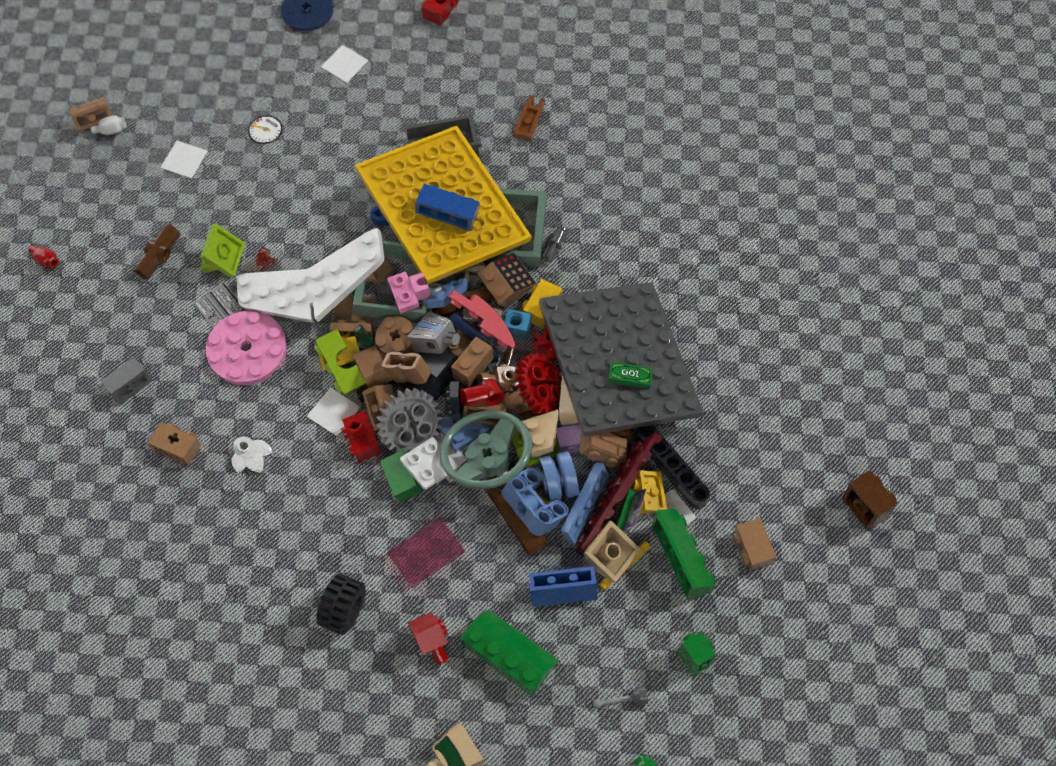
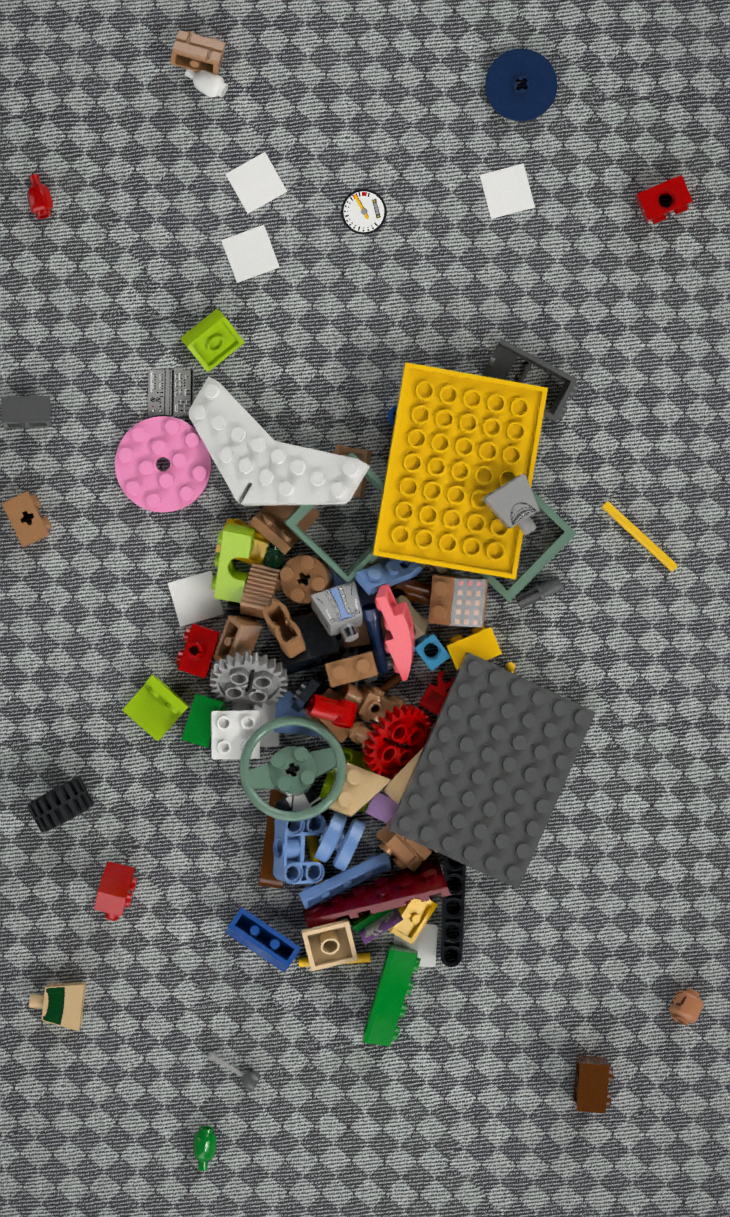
camera: 35 degrees right, 25 degrees up
(157, 251) = (151, 284): reddish brown piece -> none
(210, 197) = (250, 253): none -> white sticker
(250, 457) = (87, 587): white plate -> none
(264, 257) = (248, 377): clear red tile -> none
(360, 492) = (155, 707): none -> lime bracket
(408, 290) = (346, 548): bright pink plate -> none
(426, 552) = (173, 807): clear pink tile -> none
(447, 207) = (456, 489): blue brick -> none
(492, 191) = (514, 504): none -> light grey torso
(508, 652) = (173, 955): green slope -> none
(529, 119) = (636, 425): dark orange hinge -> none
(586, 174) = (639, 536): none -> yellow bar
(630, 375) = (479, 805): green tile -> none
(696, 653) = (325, 1089): green brick -> none
(754, 544) = (459, 1035): medium nougat brick -> none
(878, 408) = (686, 1006): none -> nougat head

